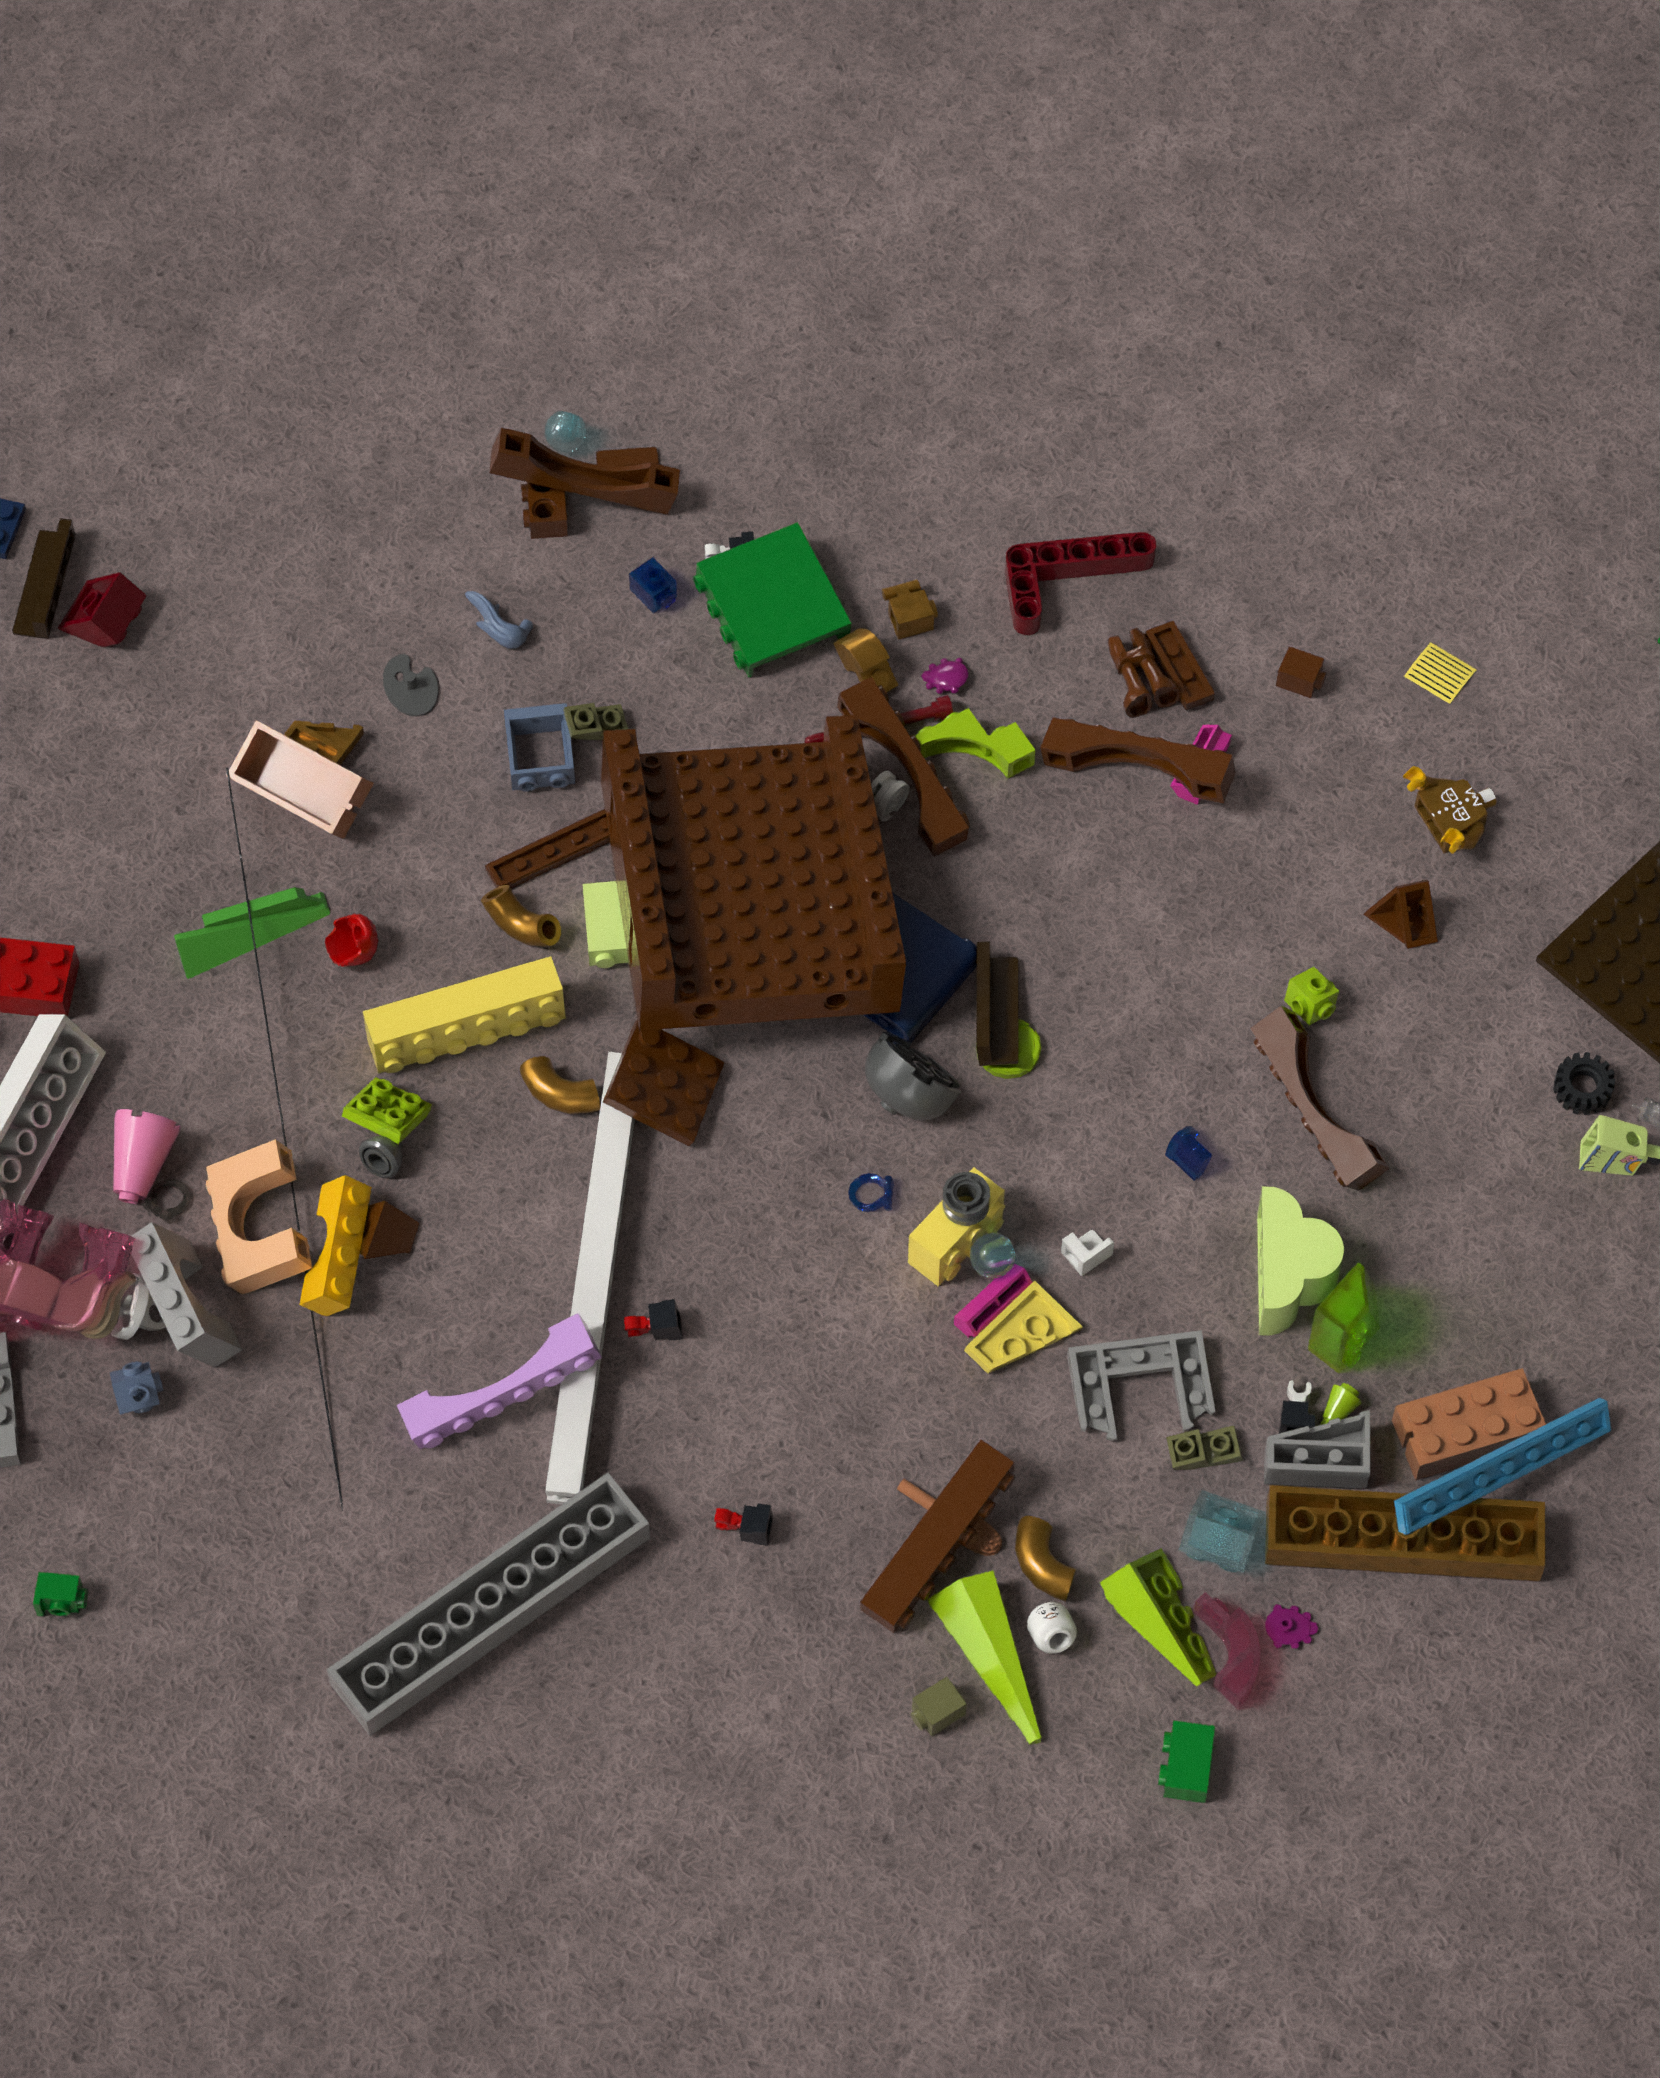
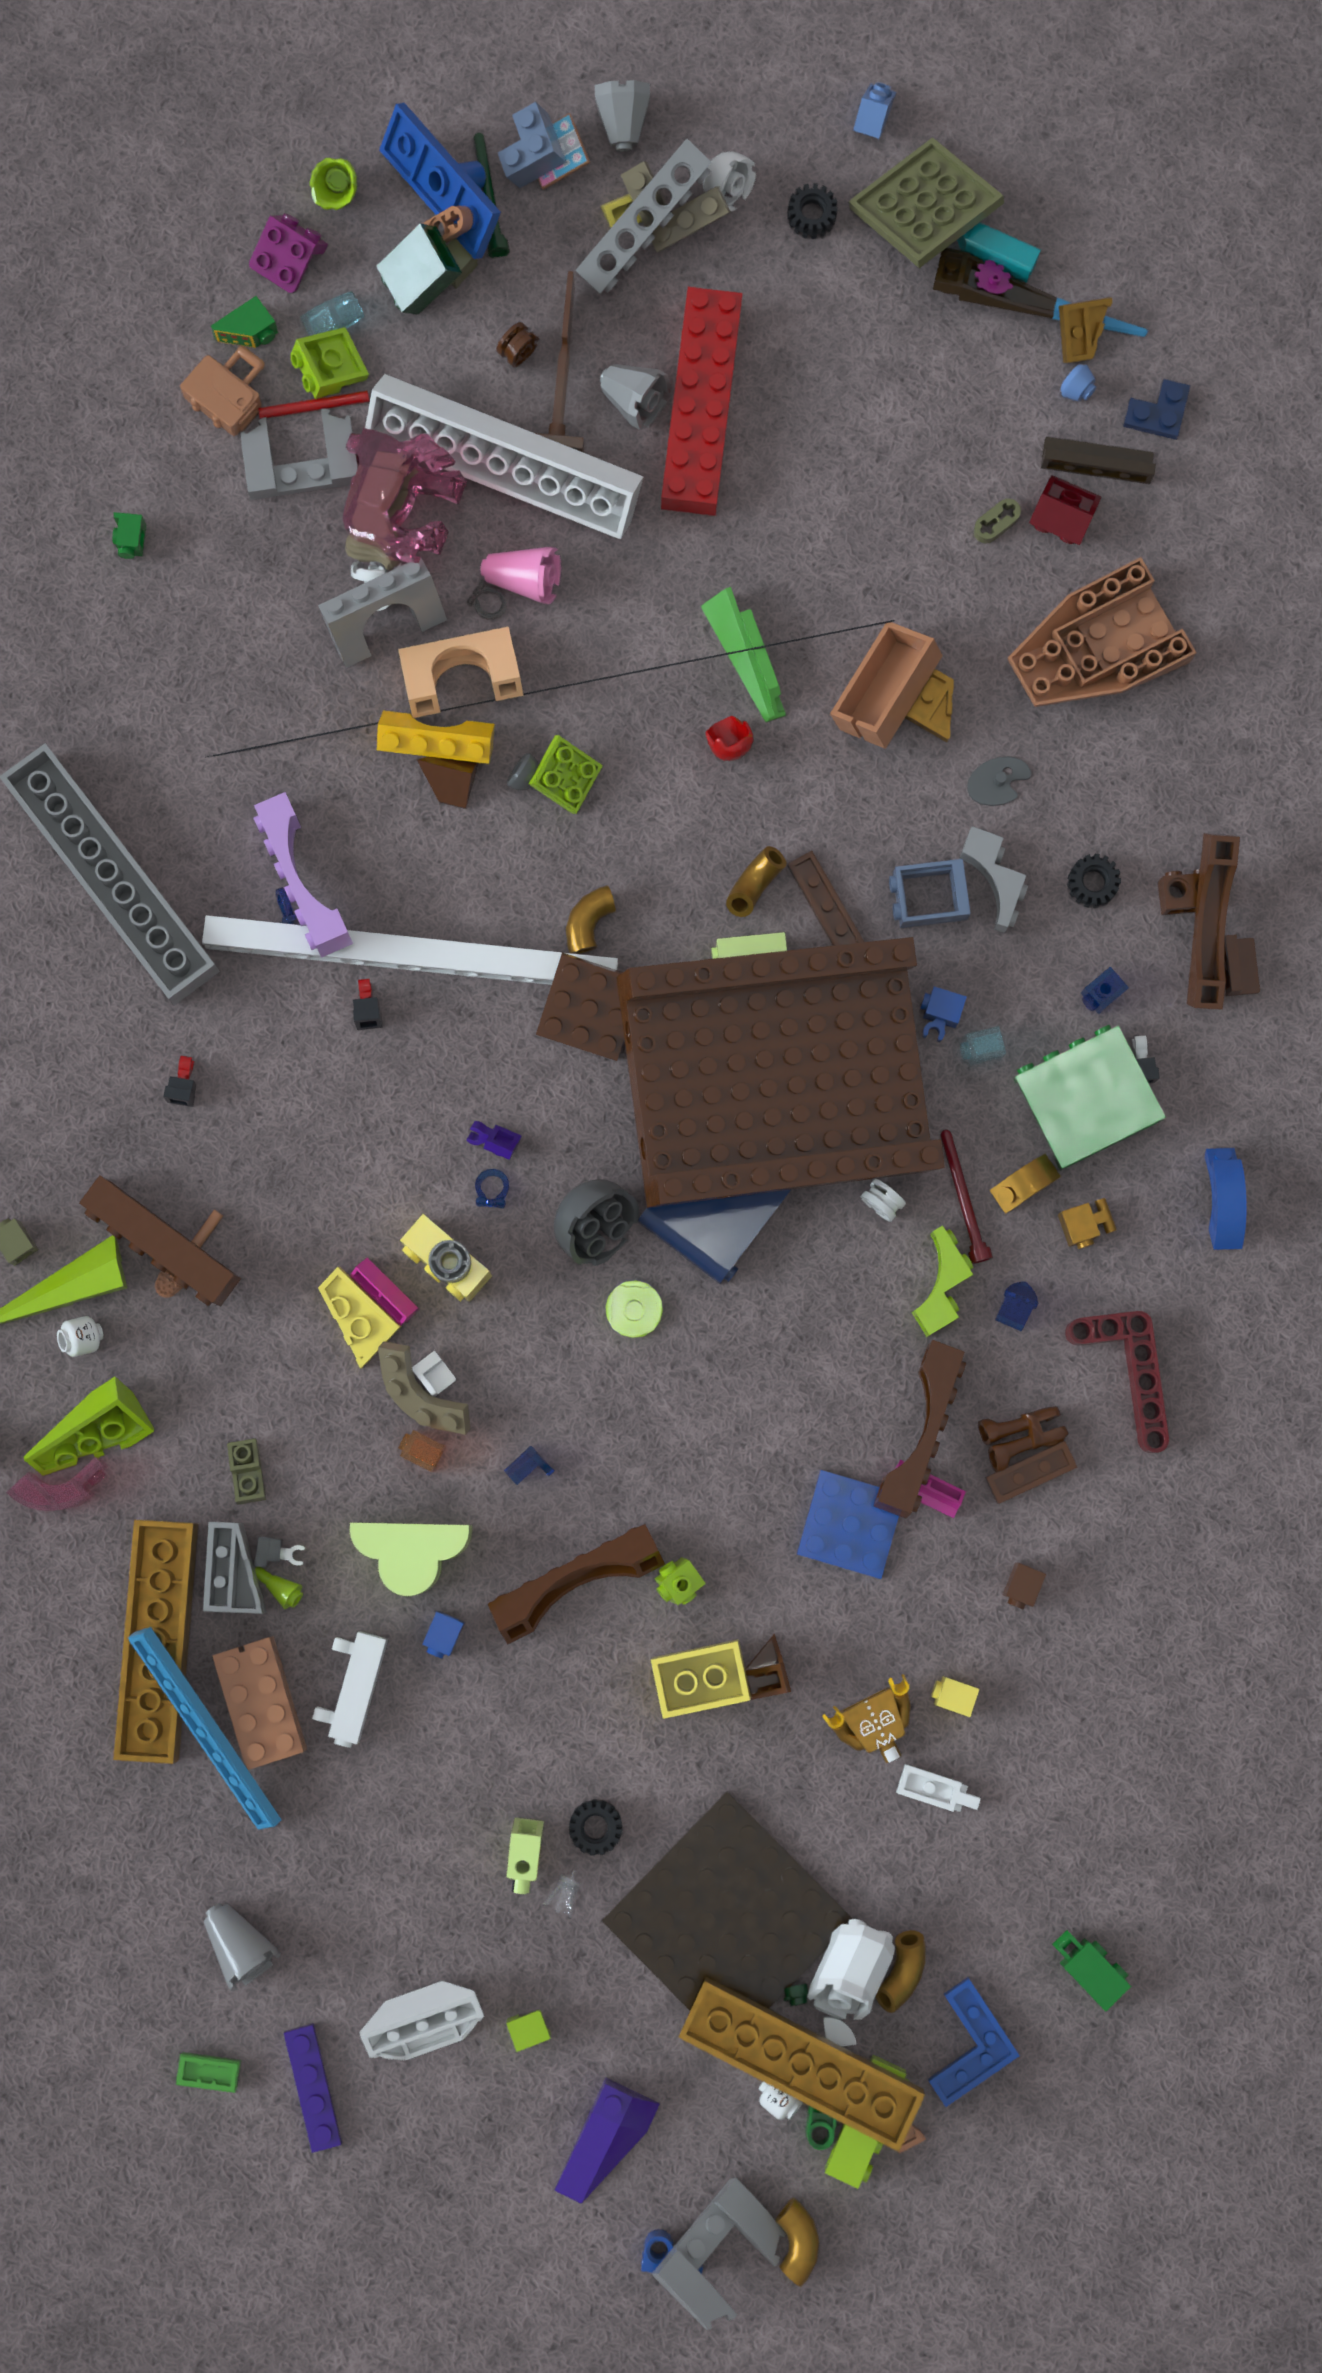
camera: 85 degrees right, 20 degrees up
(114, 675) = (1000, 525): none -> olive beam
(136, 1387) = (307, 582): sand blue brick -> none
(260, 575) = (1101, 641): none -> nougat wedge
(464, 1015) = (652, 833): light yellow brick -> none
(505, 633) = (1057, 851): sand blue piece -> none
(529, 578) = (1099, 865): none -> black tyre
(532, 675) = (982, 851): none -> light grey arch
(546, 1400) = (285, 906): none -> clear blue piece
(565, 431) = (1268, 907): clear light blue piece -> none
(589, 722) = (955, 941): olive slope -> none
(673, 734) = (942, 1009): none -> blue brick
(713, 699) = (983, 1046): none -> clear light blue brick
(815, 1182) = (496, 1140): none -> dark purple plate
(882, 469) = (1228, 1198): none -> blue arch
(940, 822) = (859, 1246): reddish brown arch -> none
(946, 676) = (1017, 1258): magenta piece -> none
(992, 1255) = (416, 1288): clear light blue piece -> none
(997, 1008) = (668, 1297): dark brown panel -> none
(1000, 673) = (1017, 1305): none -> clear blue tile
(1038, 1562) = (141, 1325): pearl gold cylinder -> none
(1096, 1363) = (332, 1450): light grey wedge -> none
(1119, 1265) = (412, 1399): none -> dark tan plate
(1175, 1258) = (421, 1450): none -> clear orange brick
(1221, 1532) = (167, 1484): clear light blue slope -> none
(1242, 839) = (846, 1527): none -> blue plate
(1289, 1626) = (83, 1538): magenta piece -> none
(1345, 1321) = (352, 1601): clear neon green wedge -> none
(1381, 1235) = (443, 1634): none -> blue brick
(1417, 973) = (700, 1679): none -> light yellow brick
(1421, 737) = (955, 1696): none -> light yellow brick
(1440, 672) = (1032, 1718): light yellow sticker -> none
(1446, 1324) = (357, 1689): none -> white brick
(1521, 759) = (935, 1789): none -> white hinge

